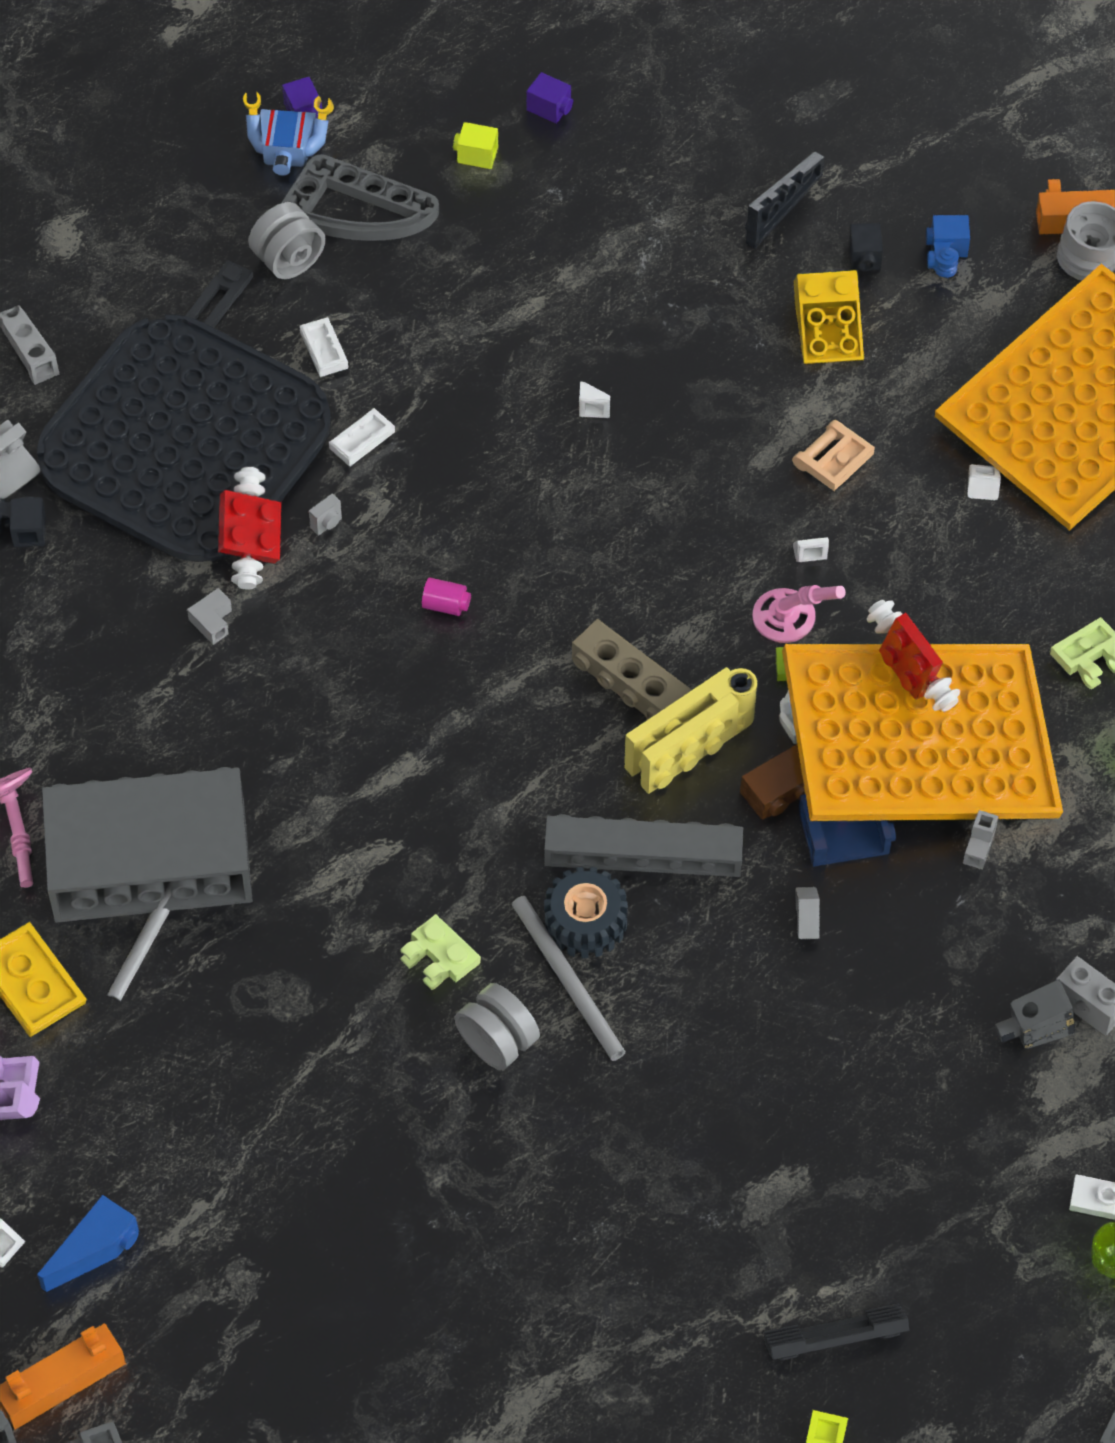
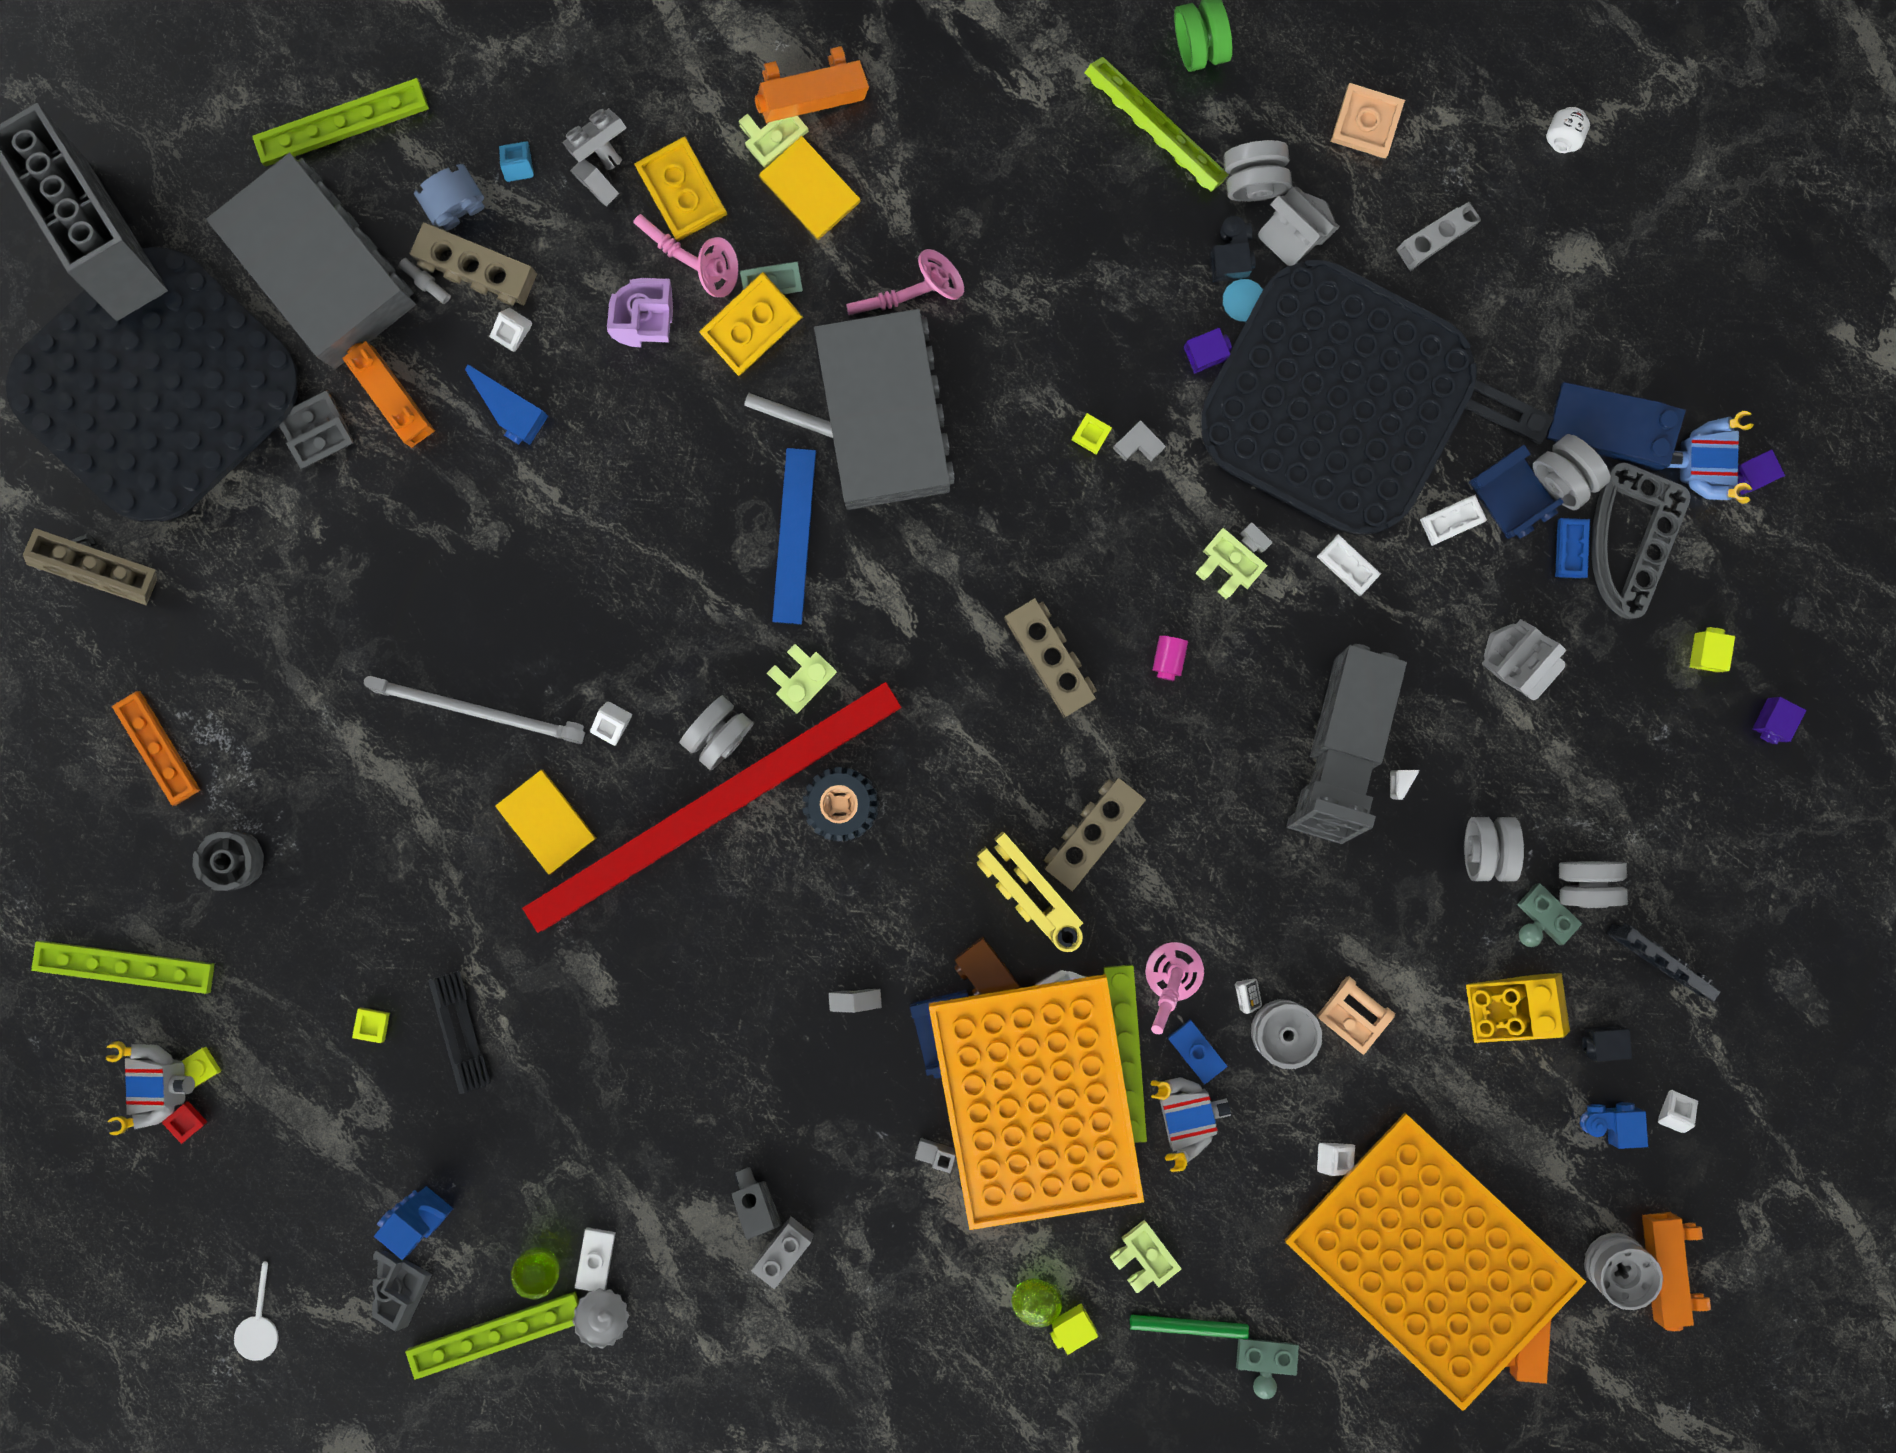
camera: 80 degrees right, 30 degrees up
(67, 519) = (1241, 298): none -> medium azure piece
(119, 547) = (1207, 350): none -> dark purple brick
(196, 657) = (1091, 433): none -> neon yellow plate
(244, 193) = (1618, 425): none -> dark blue slope
(249, 527) = (1230, 468): red plate -> none
(277, 952) = (794, 536): none -> blue tile
(304, 296) = (1514, 494): none -> dark blue panel
(345, 534) = (1234, 559): none -> yellowish green plate
(363, 251) = (1572, 548): none -> blue plate
(429, 720) = (1019, 623): none -> dark tan brick
(470, 291) = (1524, 658): none -> light grey piece
(478, 1154) = (610, 723): none -> white slope
(486, 1196) = (571, 732): none -> light grey hinge
(550, 432) = (1349, 744): none -> dark grey brick
(568, 978) = (782, 791): light grey piece -> none
(586, 1051) = (711, 808): none -> red piece
(589, 1229) = (545, 822): none -> yellow tile
(644, 845) = (914, 853): dark grey brick -> none
(664, 322) = (1494, 849): none -> light grey wheel
(704, 244) = (1593, 884): none -> light grey wheel
(736, 289) = (1547, 916): none -> sand green plate
(851, 509) = (1299, 1046): none -> light grey wheel
(860, 598) = (1197, 1051): none -> blue plate
(911, 656) = (1094, 1096): red plate -> none
(936, 198) = (1678, 1112): none -> white slope
(942, 602) = (1188, 1118): none -> torso
(1053, 1357) = (411, 1221): none -> blue arch

